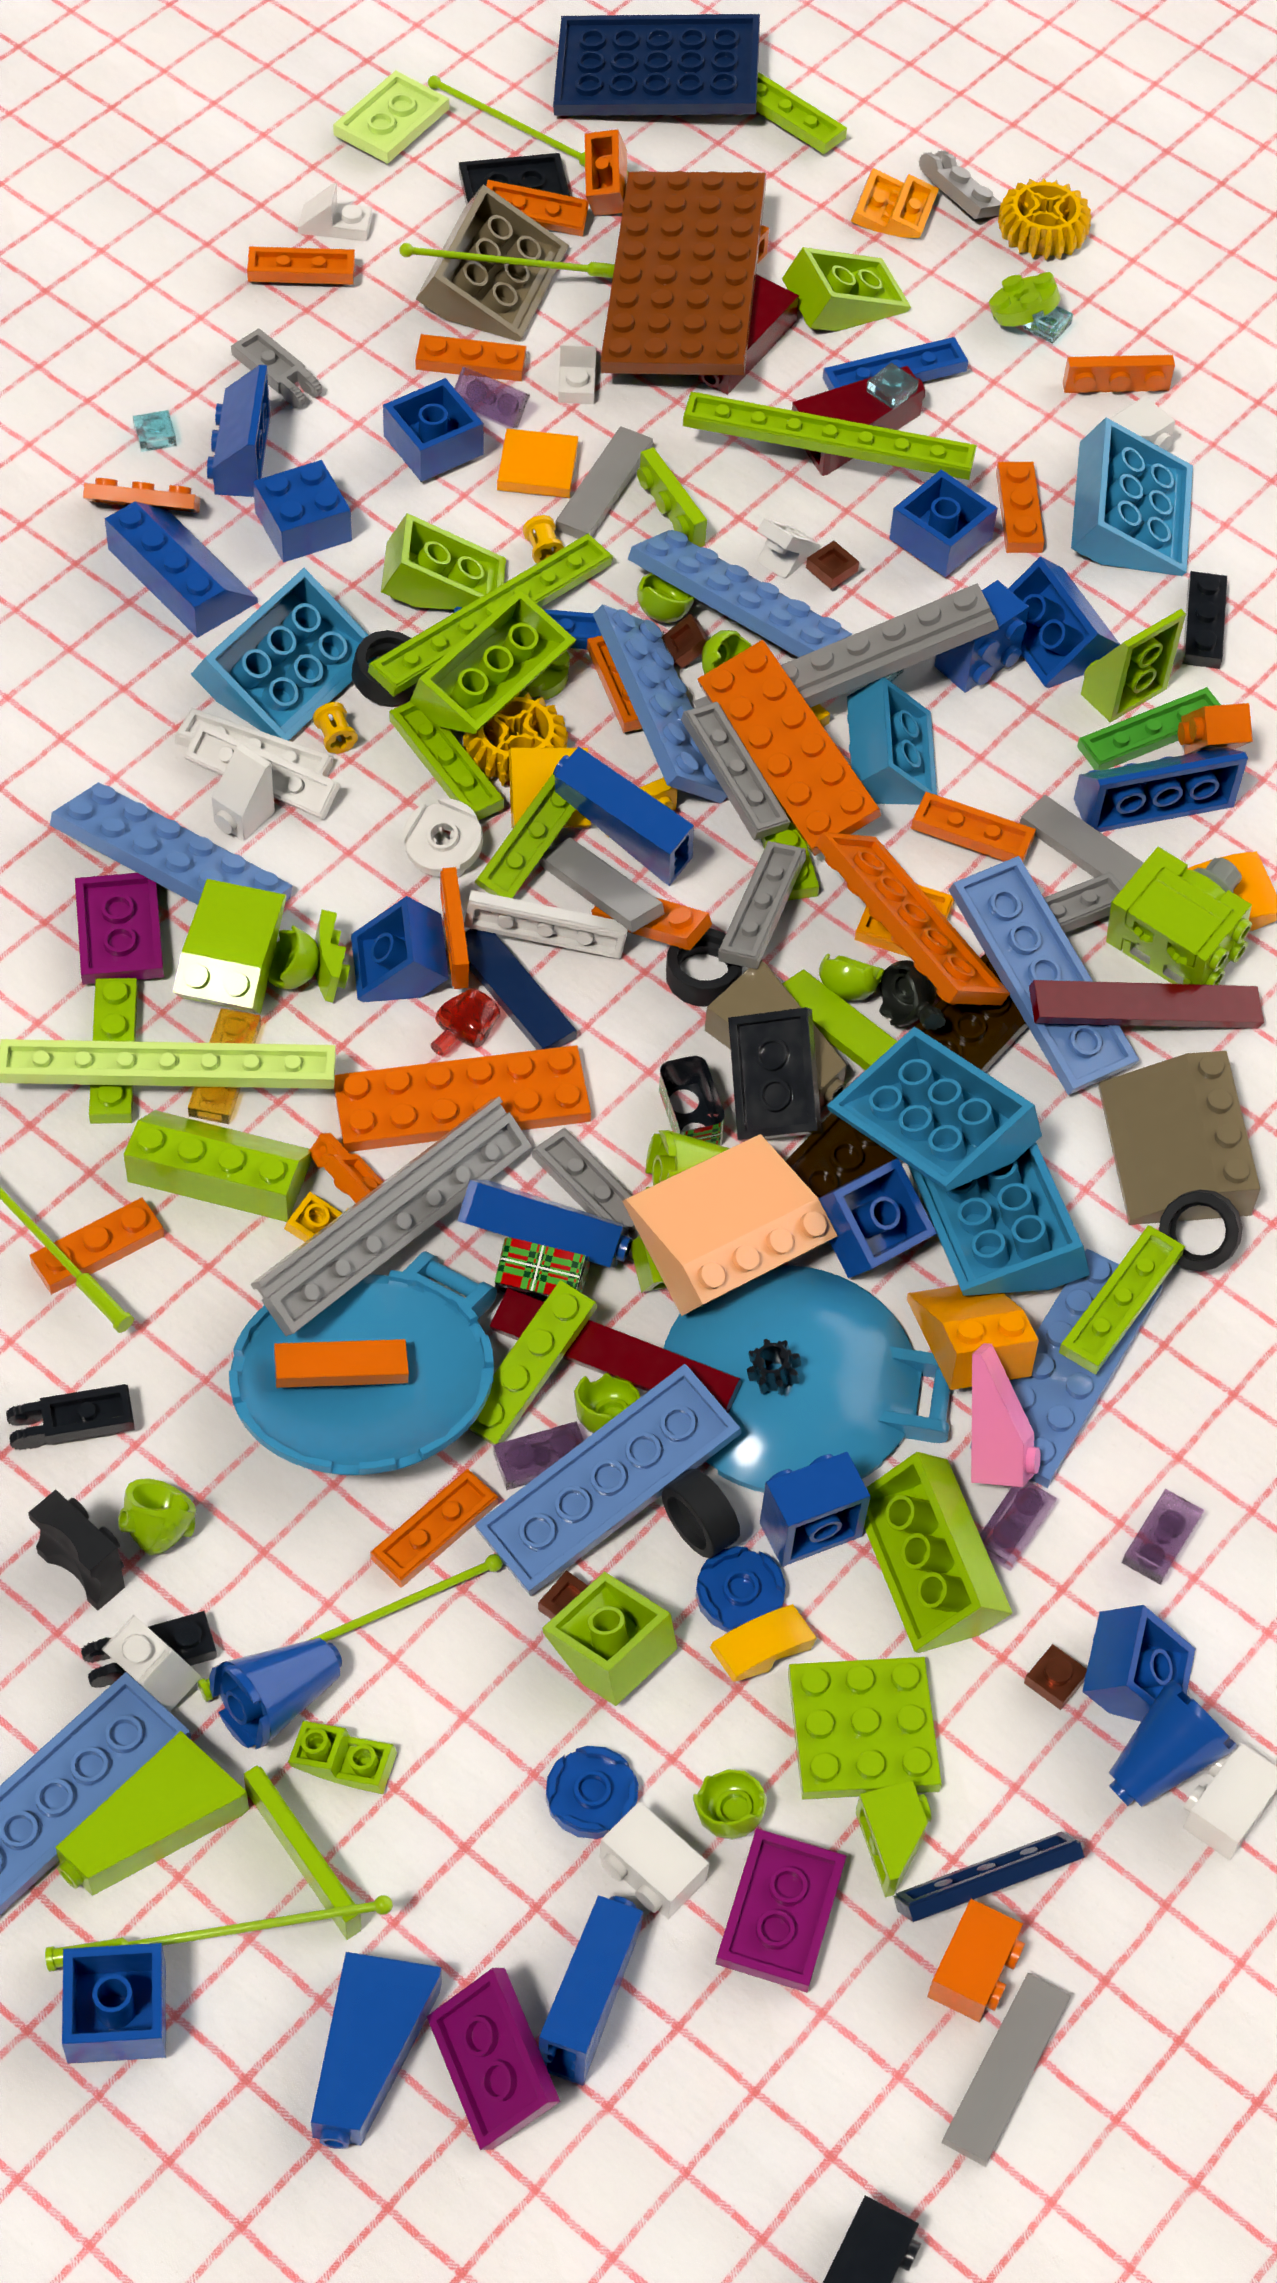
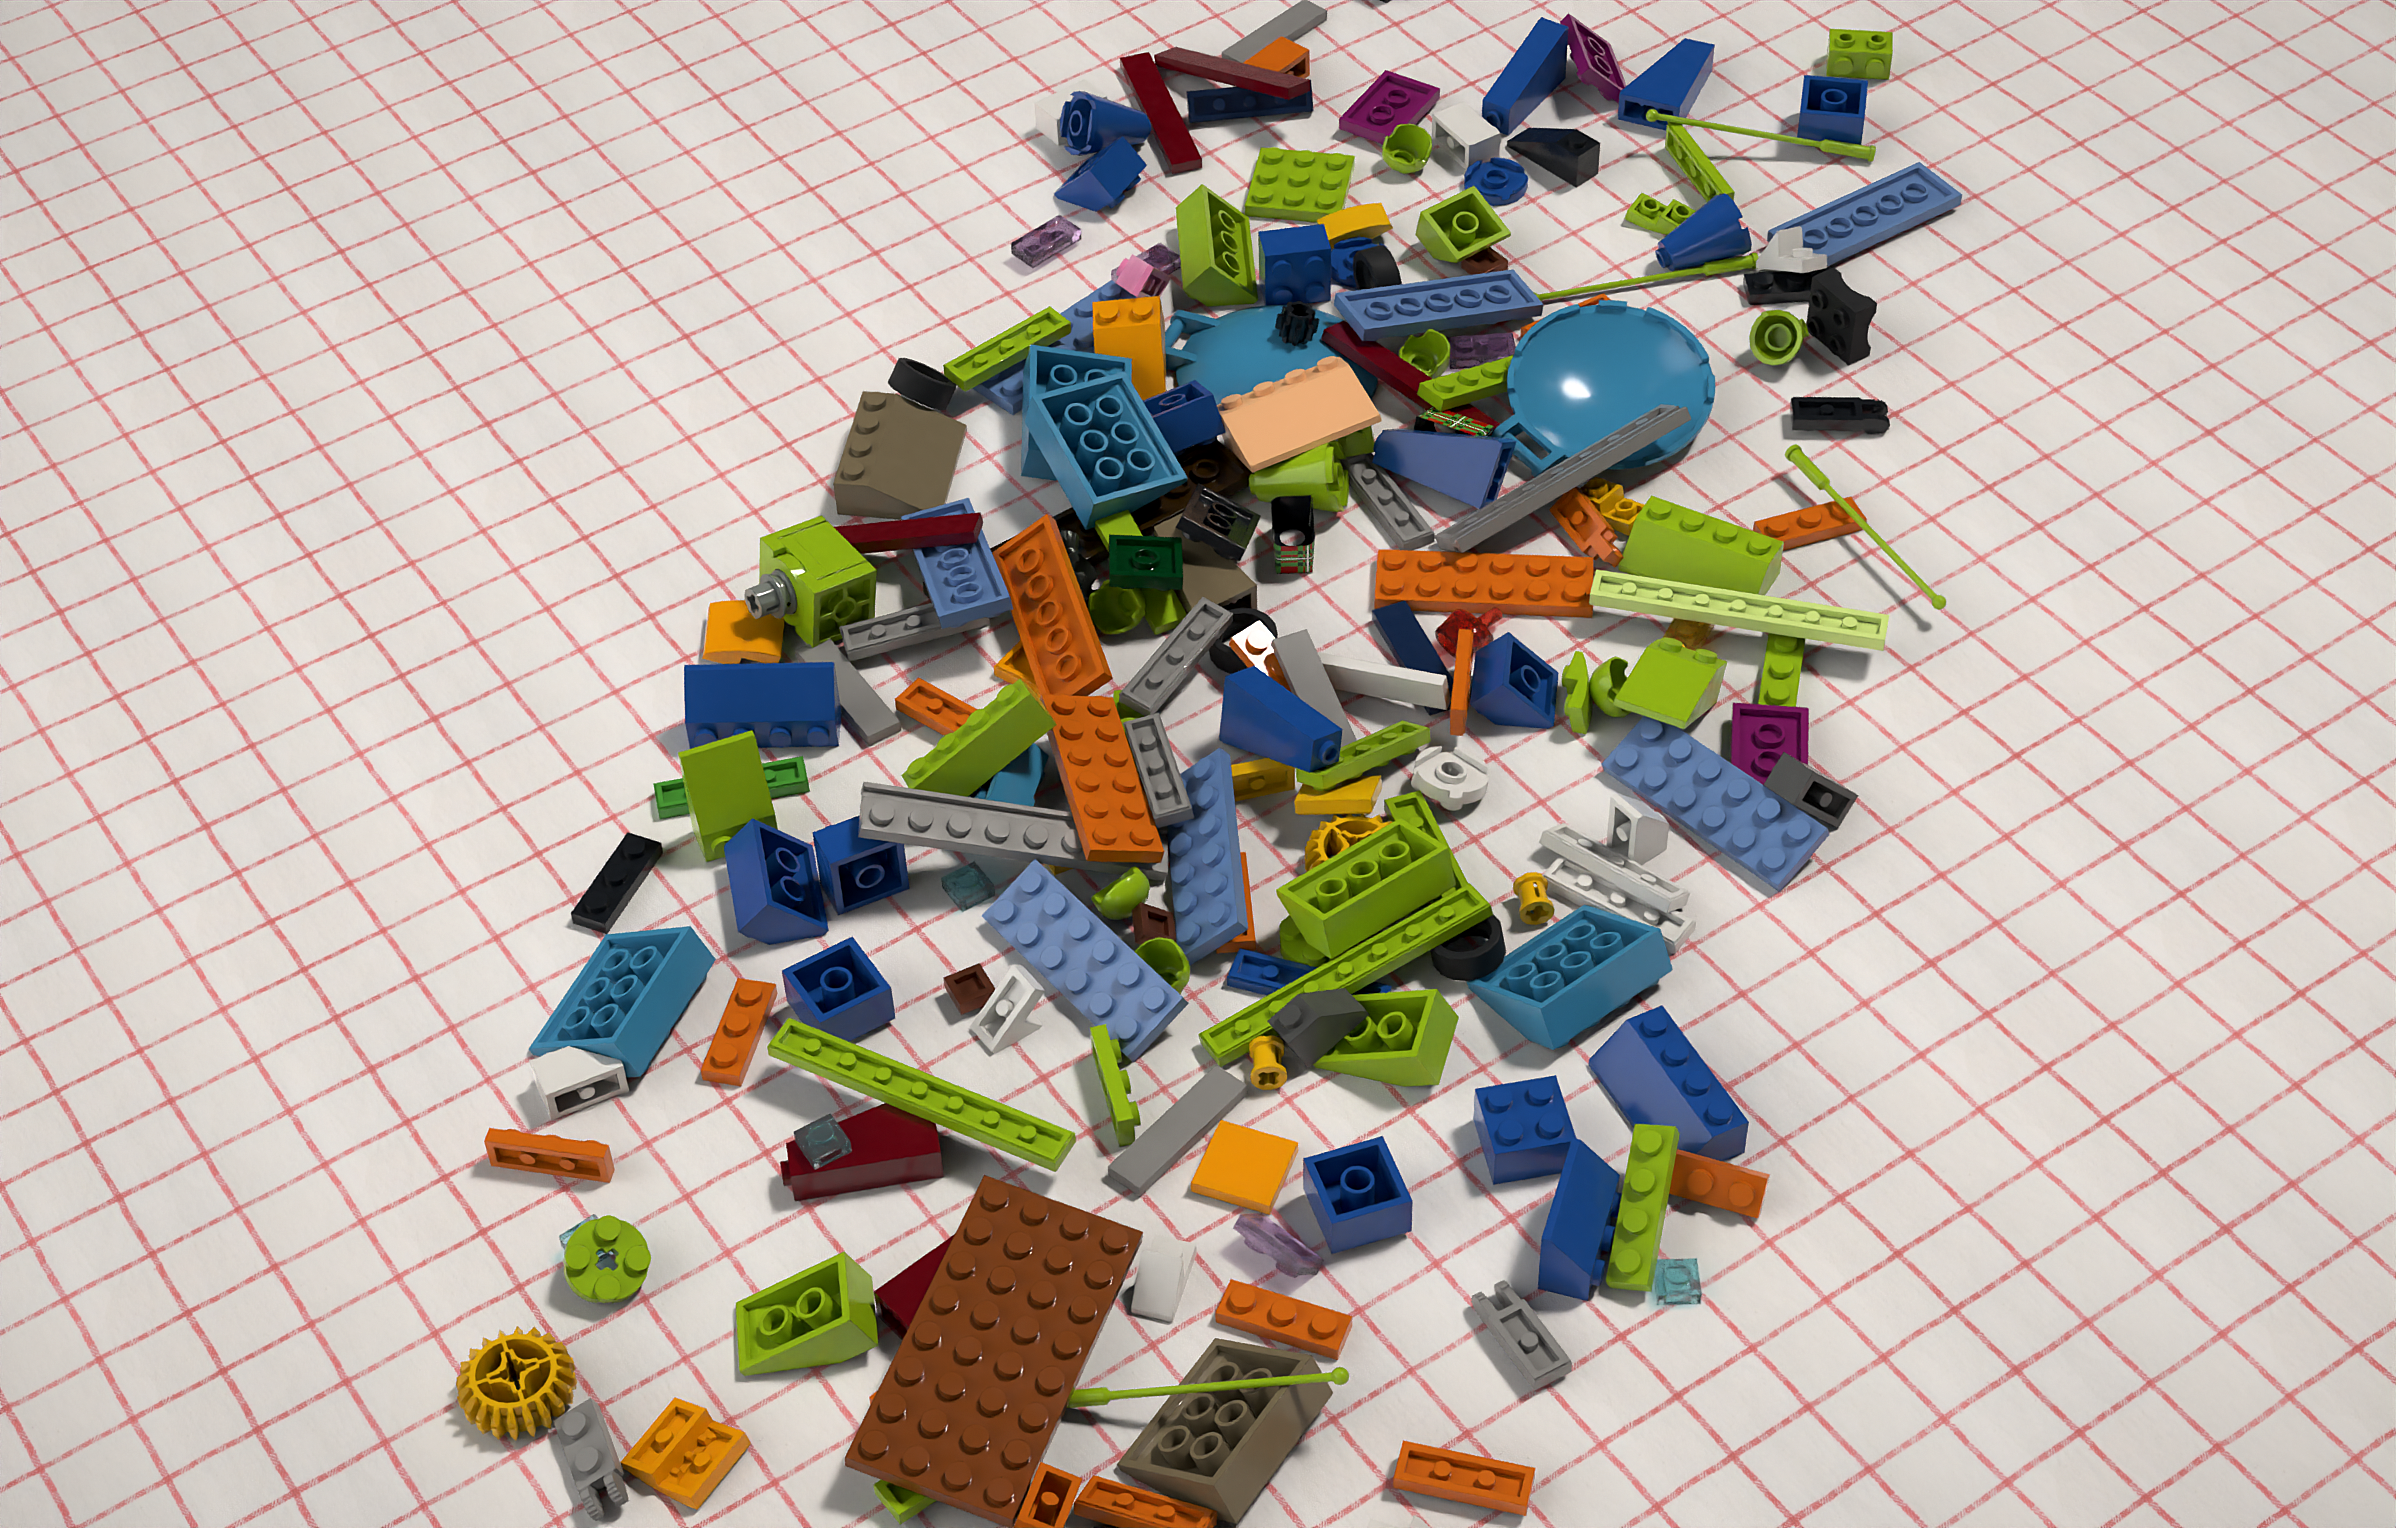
camera: 160 degrees left, 10 degrees down
(74, 851) = (1810, 790): none -> dark grey slope
(80, 2185) = (1859, 54): none -> lime brick
(150, 1816) = (1787, 195): lime slope -> none
(189, 453) = (1642, 1207): none -> lime plate
(341, 1363) = (1620, 399): orange tile -> none
(506, 556) = (1317, 1022): none -> dark grey slope
(518, 1858) = (1560, 151): none -> black slope
(833, 980) = (1145, 562): none -> dark green plate
(893, 1828) = (1301, 125): lime slope -> none
(917, 737) = (982, 744): none -> lime slope
(925, 361) = (796, 1208): blue plate -> none
(1031, 1901) = (1232, 73): none -> dark red tile
(1056, 1677) = (1157, 191): copper plate -> none
(1115, 1850) = (1162, 112): none -> dark red tile
(1215, 728) = (682, 724): orange brick -> none

